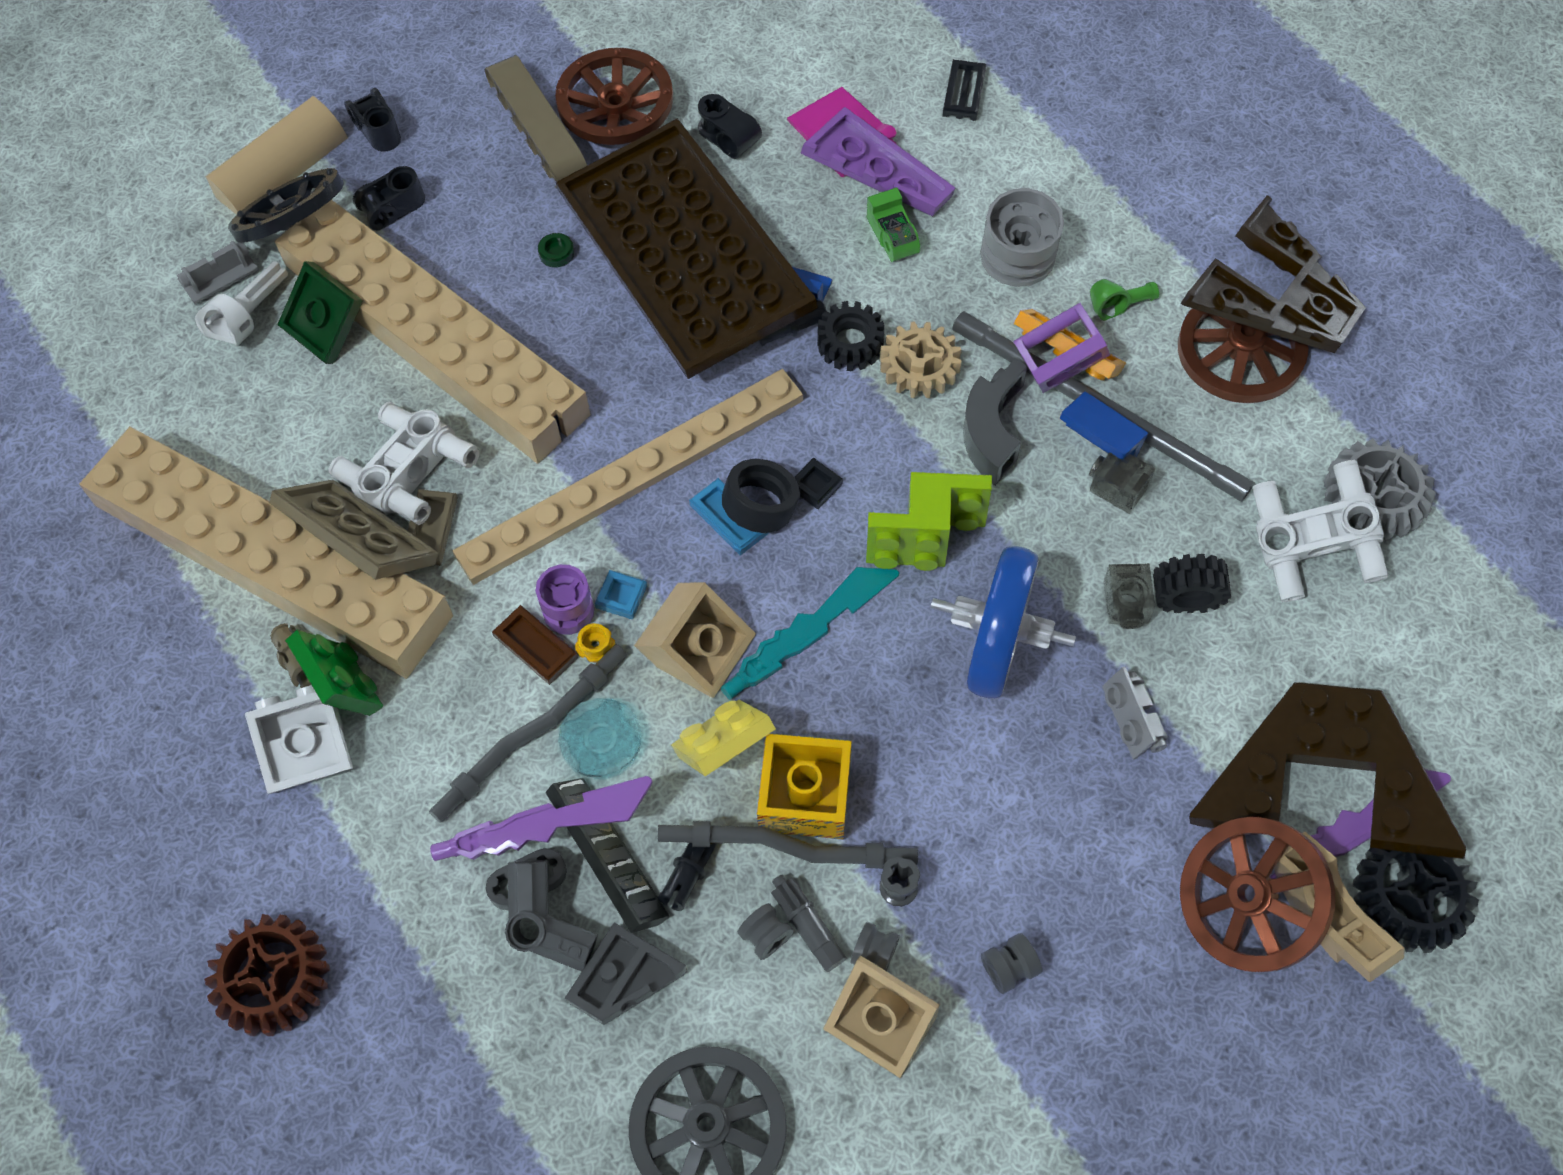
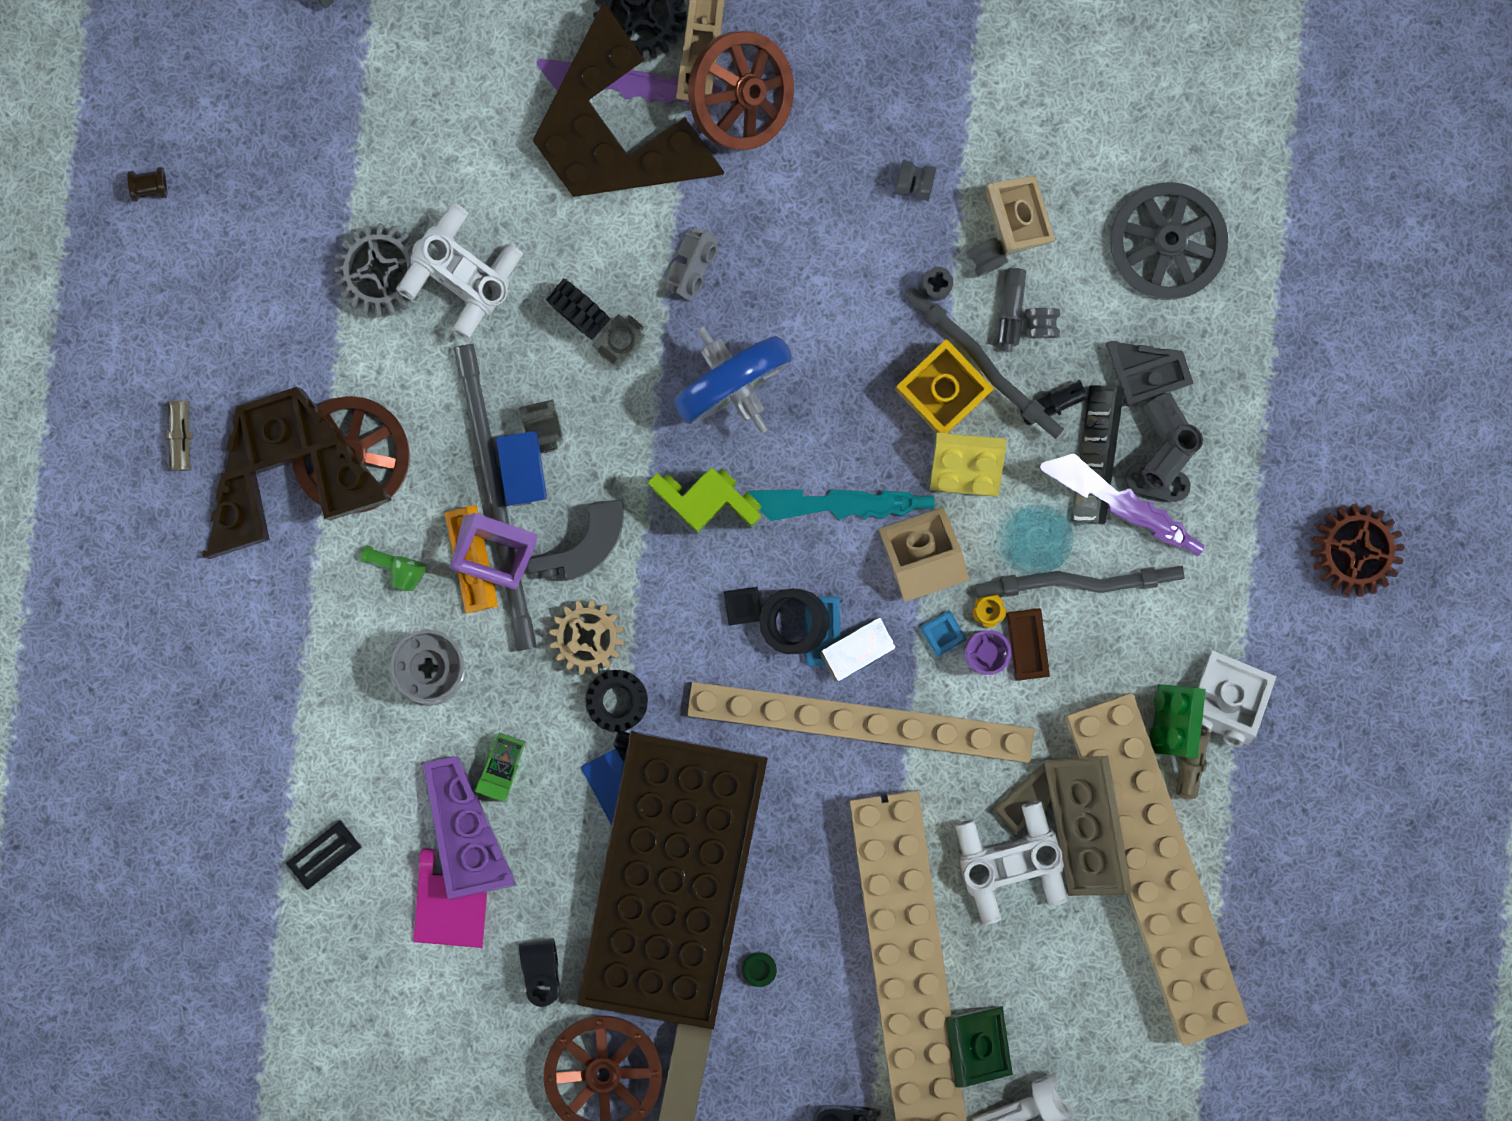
camera: 145 degrees left, 25 degrees up
(685, 519) = (857, 649): none -> tile
(1362, 242) = (179, 435): none -> dark tan pin

